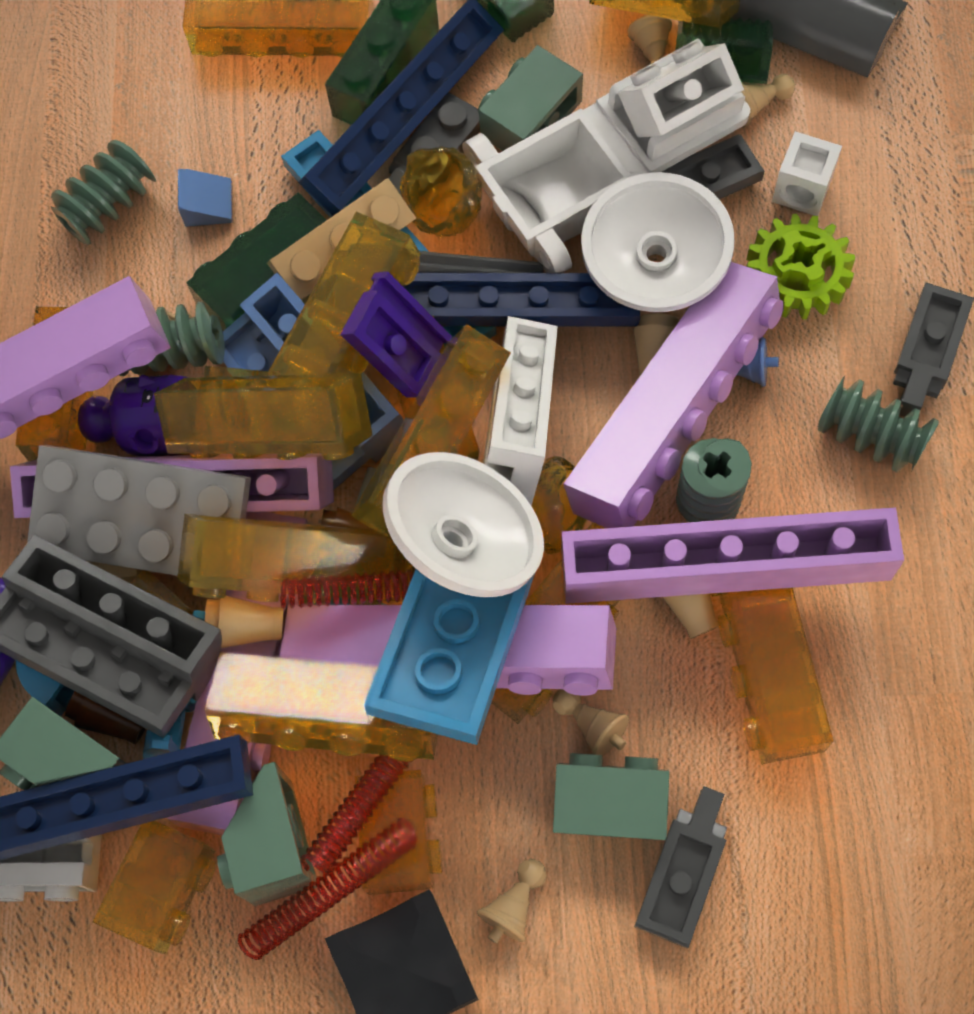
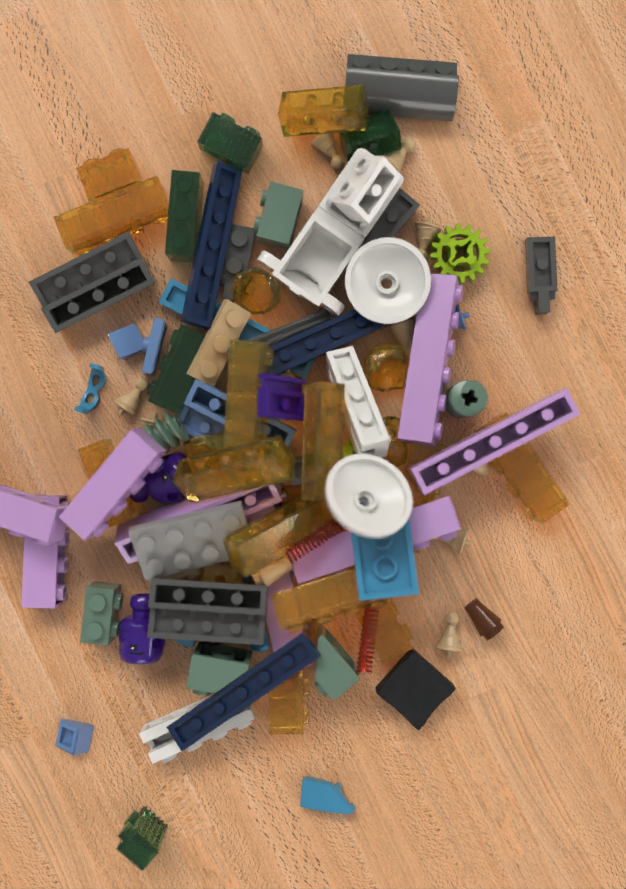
camera: 30 degrees left, 20 degrees up
(100, 190) = (71, 364): sand green piece -> none
(132, 222) = (84, 407): none -> dark azure cap
(161, 283) = (130, 401): none -> tan piece
(196, 89) = (92, 282): none -> dark grey brick
(240, 213) = (152, 346): none -> medium blue plate
(329, 901) = (376, 662): clear red piece -> none
(590, 902) = (484, 620): none -> reddish brown cone
(594, 384) = (386, 367): none -> clear yellow hair
(611, 798) = (477, 573): sand green brick -> none
(684, 872) = (521, 588): dark grey hinge -> none
(756, 215) = (426, 233): none -> tan piece
(806, 173) = (444, 199): white brick -> none
(876, 425) = (532, 328): sand green piece -> none

